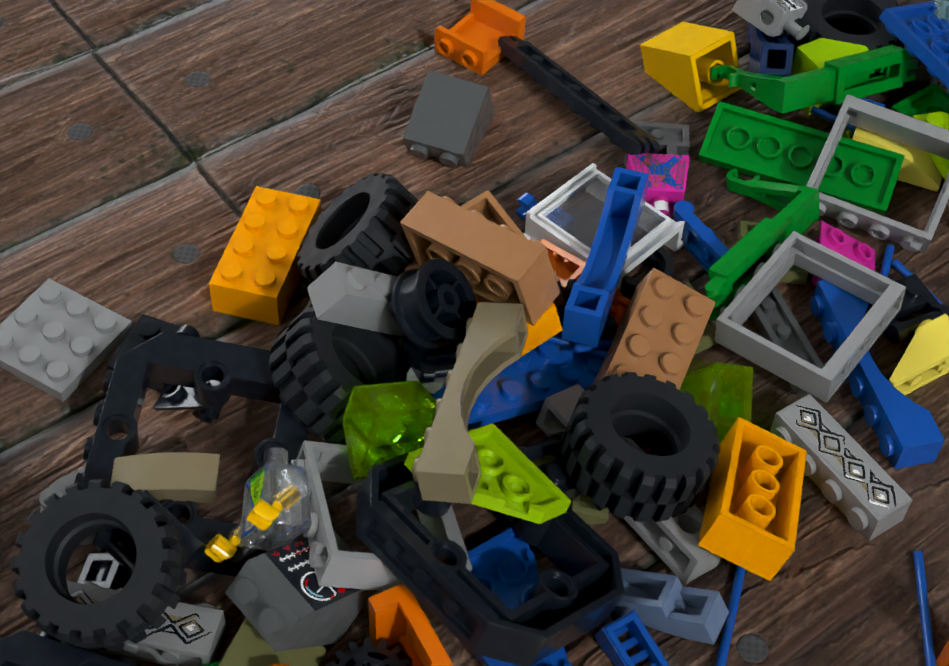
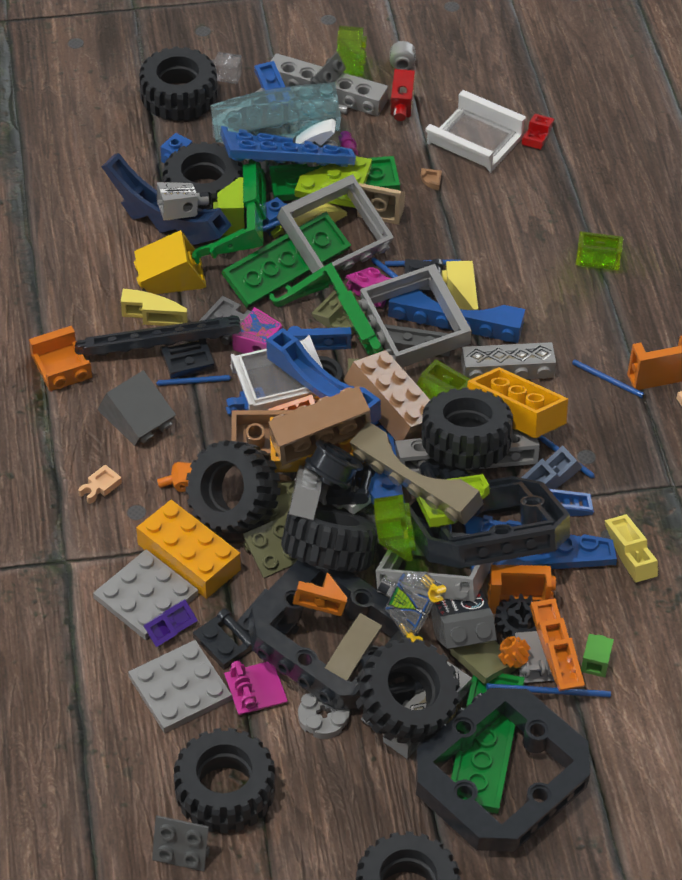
camera: 60 degrees left, 0 degrees up
(73, 411) = (254, 687): none -> dark pink hinge
(142, 285) = (170, 622): none -> dark purple slope
(176, 248) = (143, 591): none -> light grey plate
(227, 402) = (326, 598): none -> orange slope
(322, 141) = (102, 482): none -> light nougat plate
(541, 156) = (193, 380): none -> blue axle
(569, 137) = (187, 358): none -> black plate
(615, 73) = (152, 308): none -> light yellow slope

